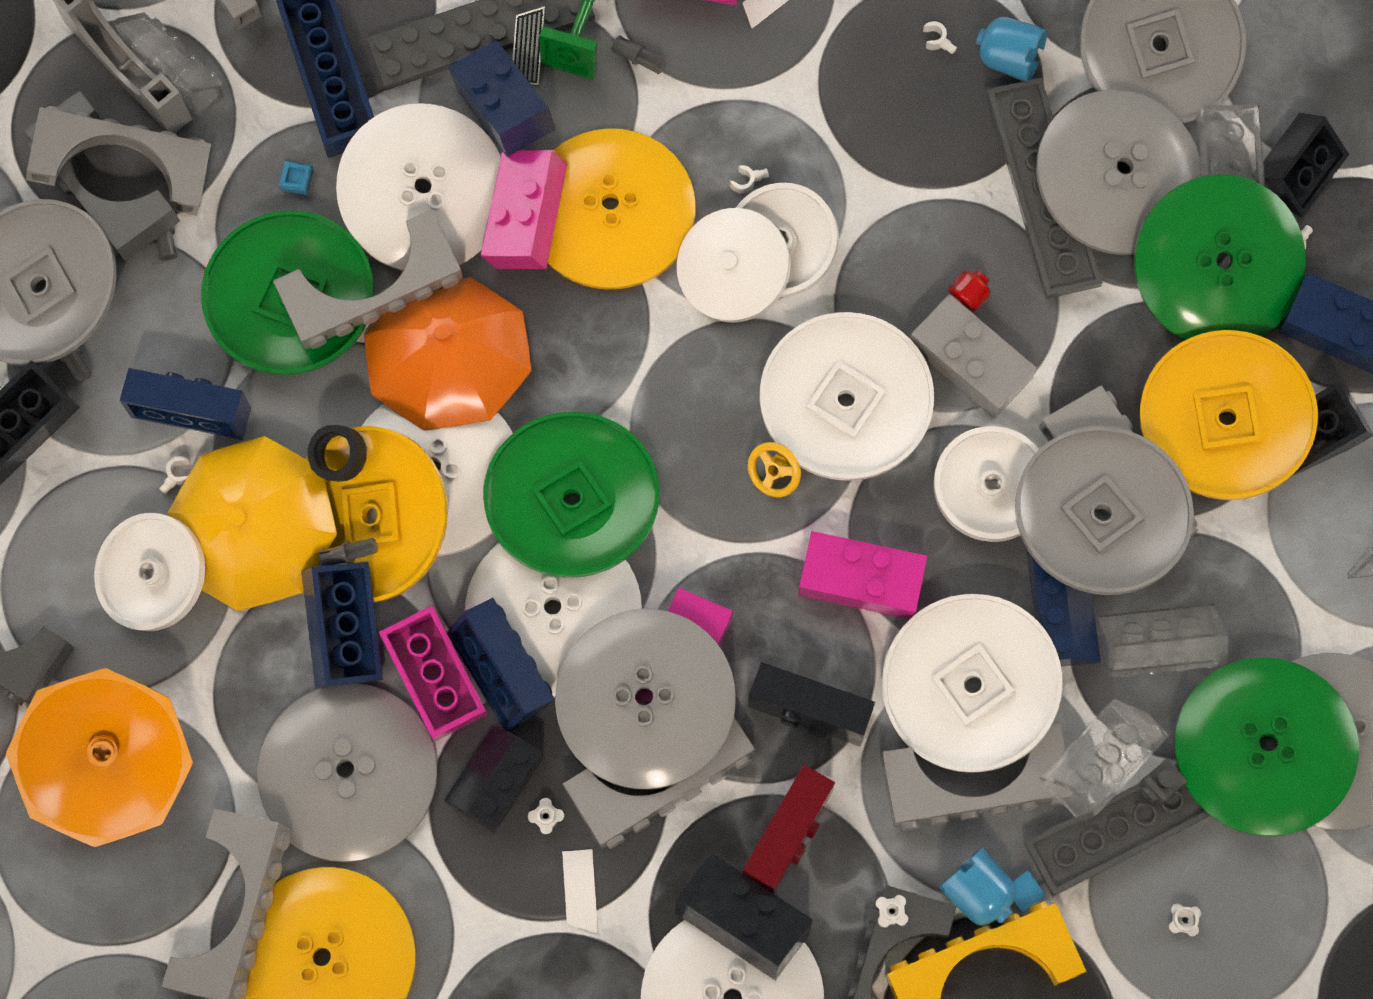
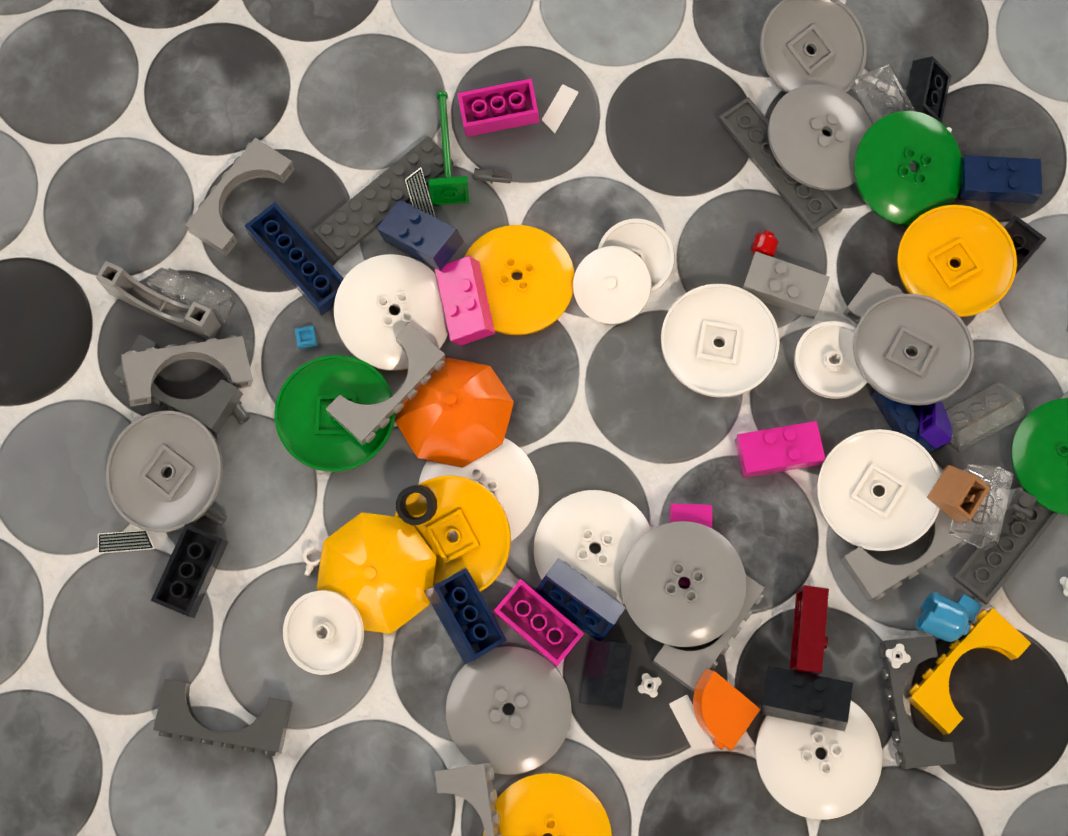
camera: 25 degrees left, 0 degrees up
(99, 757) = (345, 770): light orange piece -> none
(185, 403) = (299, 511): dark blue brick -> none
(347, 552) = (450, 566): dark grey axle -> none
(562, 457) = (575, 444): green dish -> none
(624, 885) = (722, 710): none -> orange brick
(754, 176) = (598, 225): white piece -> none
(783, 460) = (697, 395): yellow piece -> none
(810, 704) = (787, 544): black brick -> none
(943, 42) = (677, 98): white piece -> none
(1011, 47) = (721, 84): dark azure cylinder -> none
(1071, 727) = (958, 493): none -> medium nougat slope
(1089, 624) = (935, 424): none -> dark purple slope

